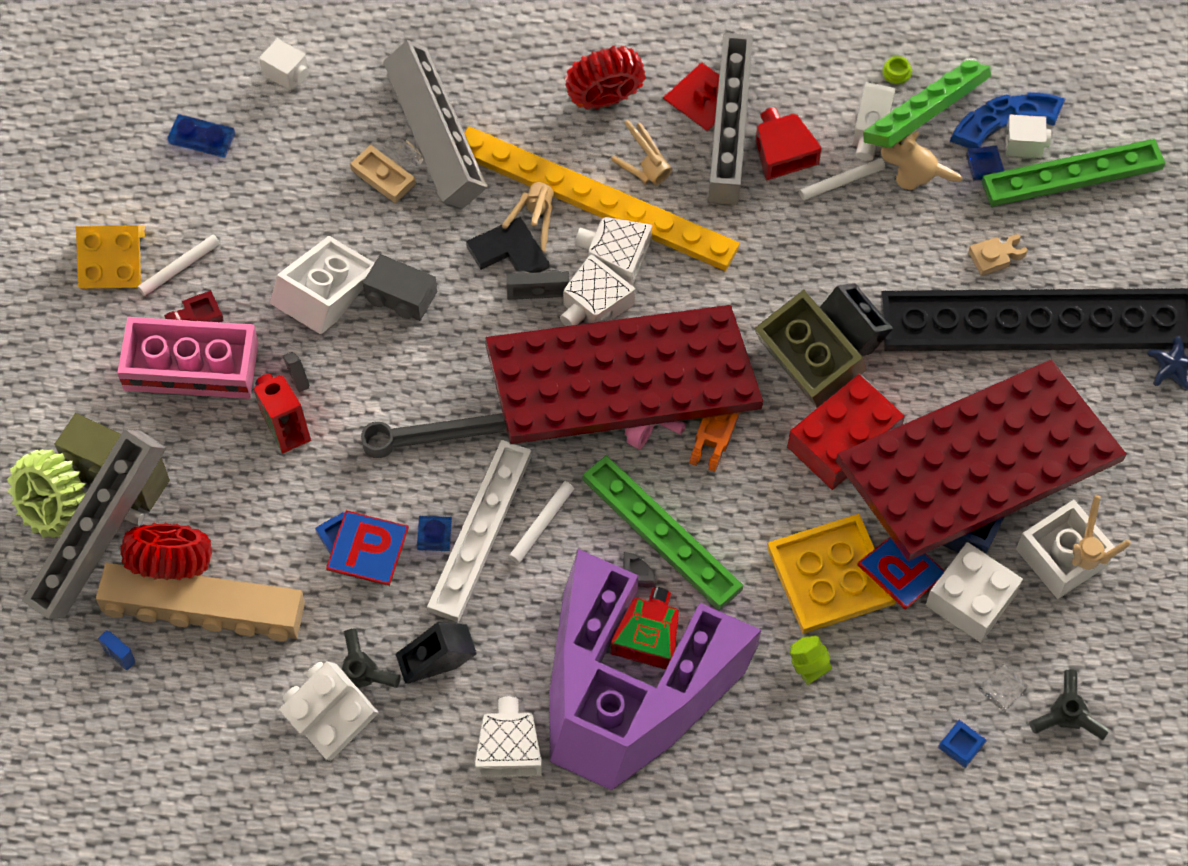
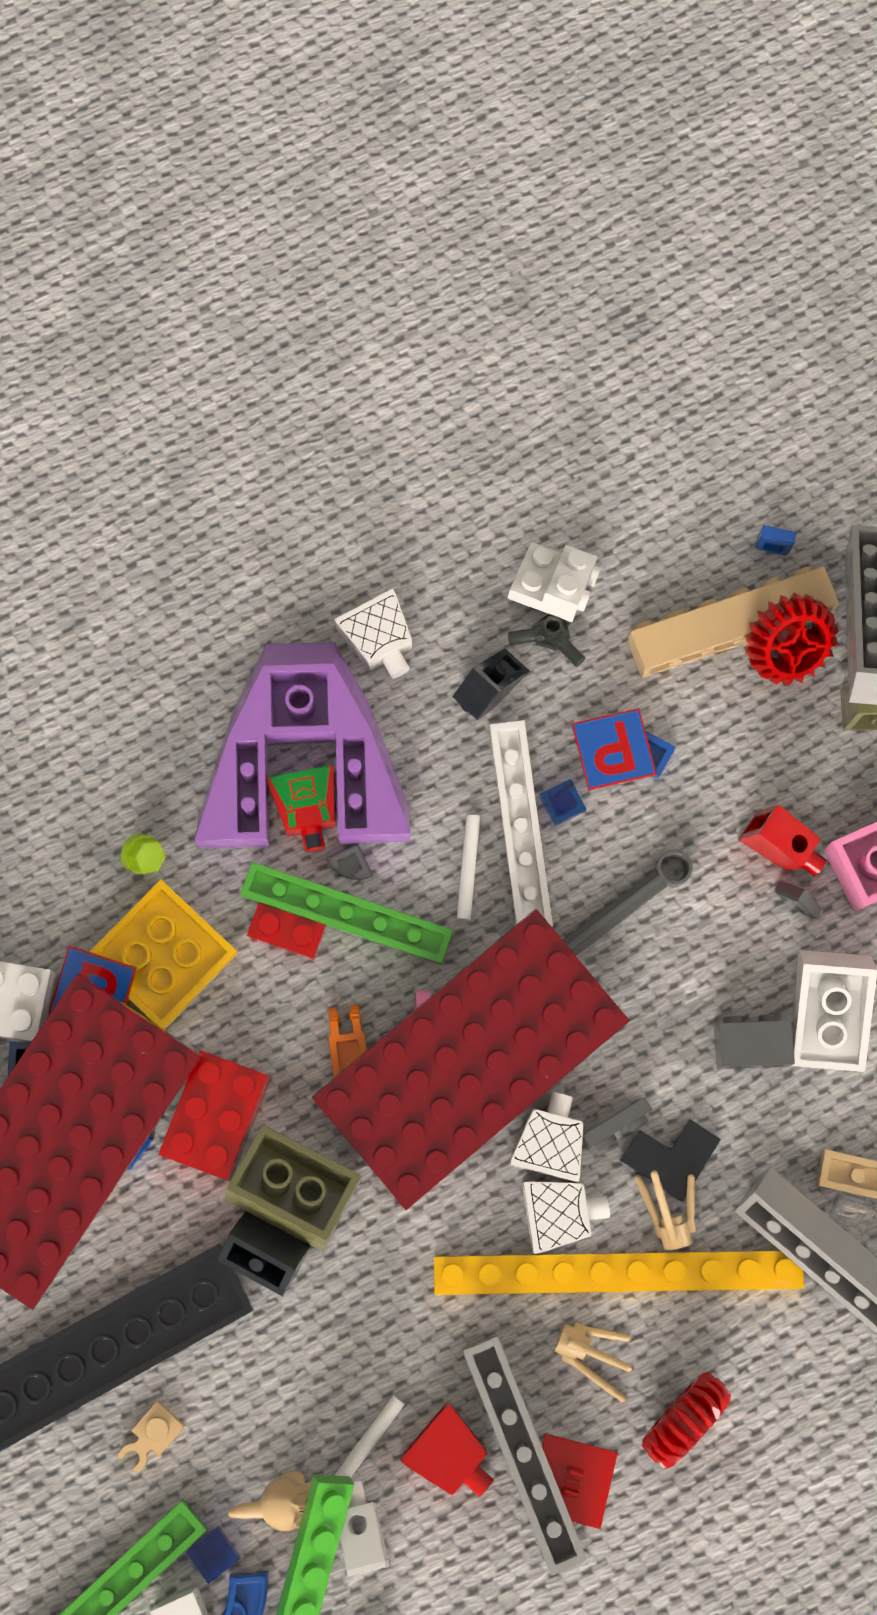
camera: 150 degrees right, 15 degrees up
(720, 543) = (286, 931): none -> red plate

